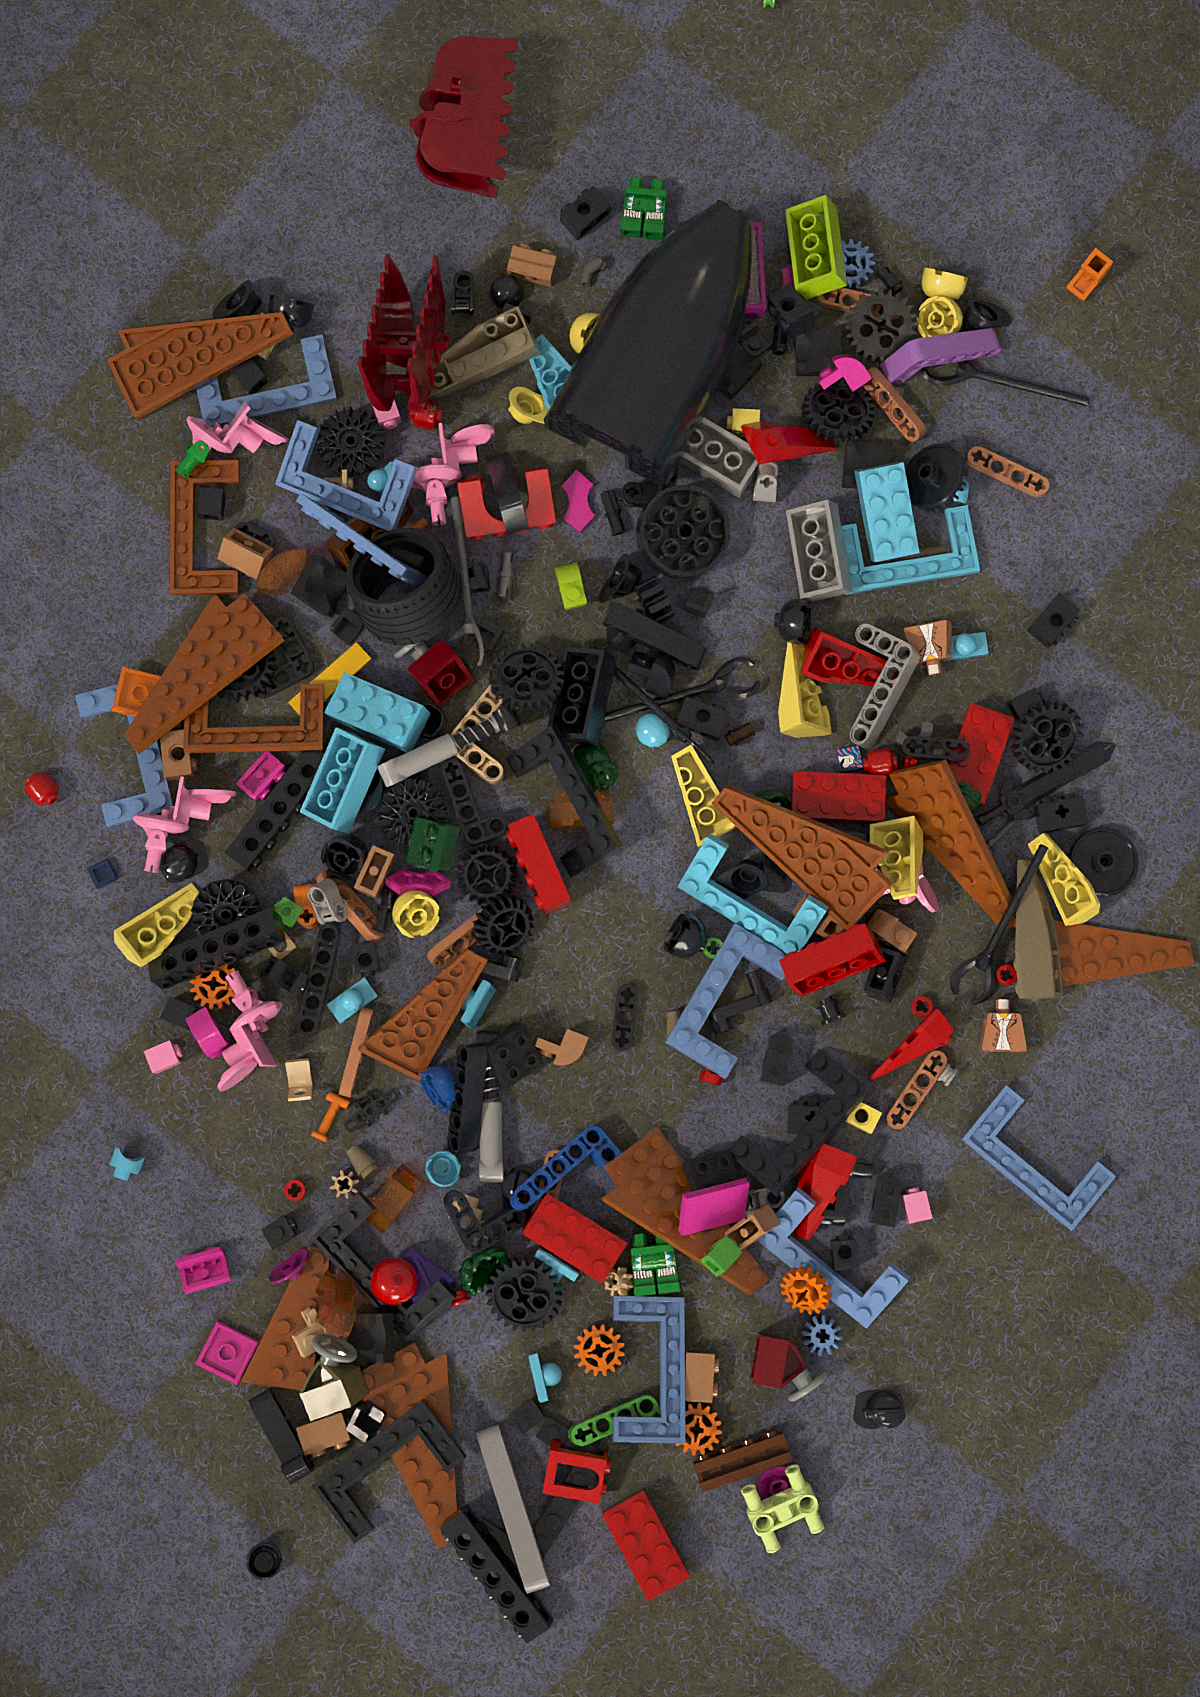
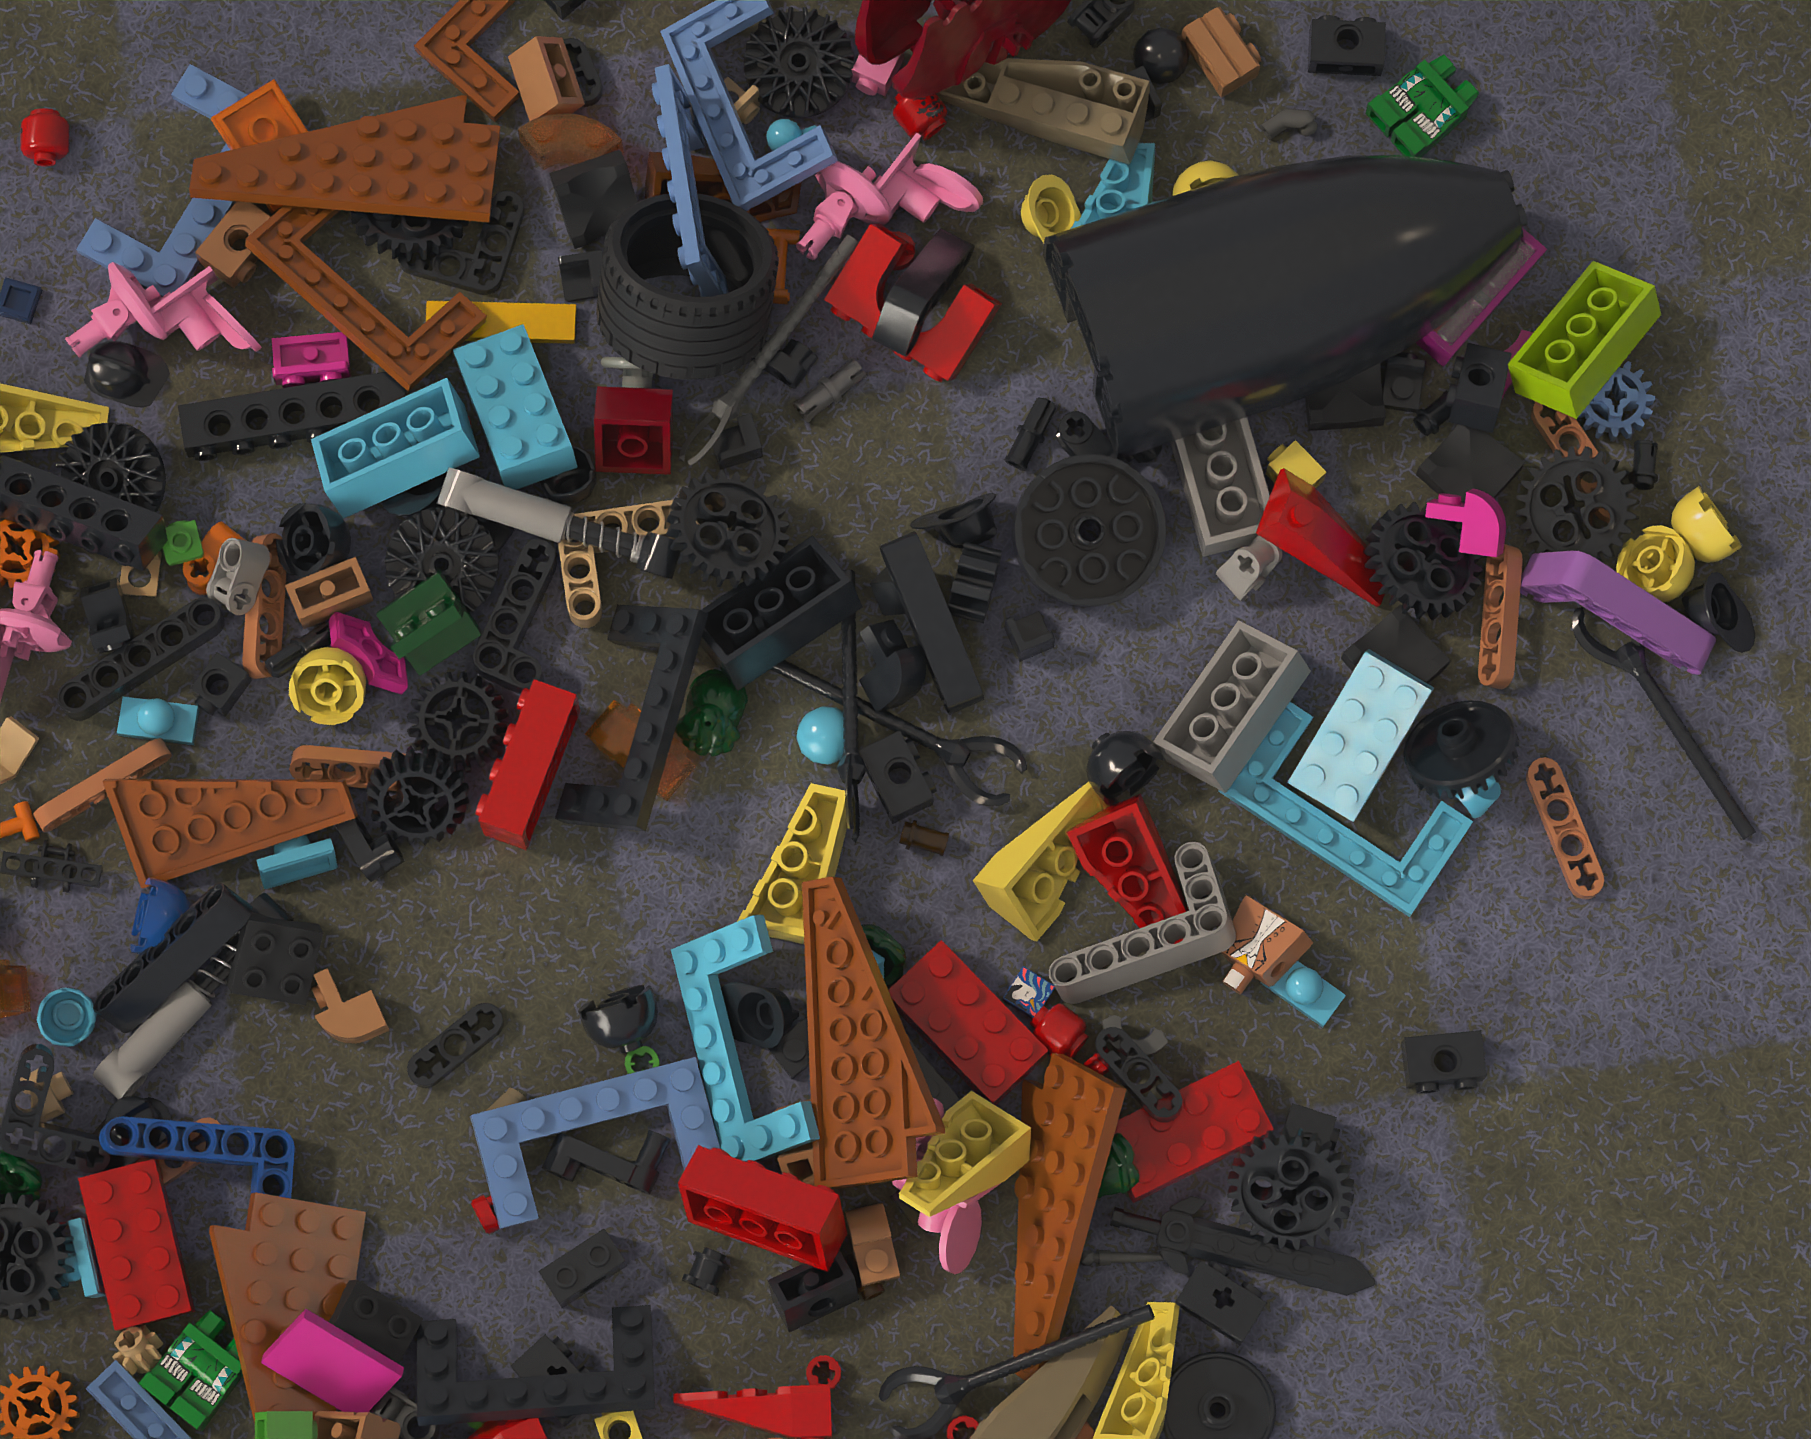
camera: 40 degrees right, 5 degrees down
(570, 586) = (892, 471): lime brick -> none
(577, 491) = (1014, 369): dark pink tile -> none

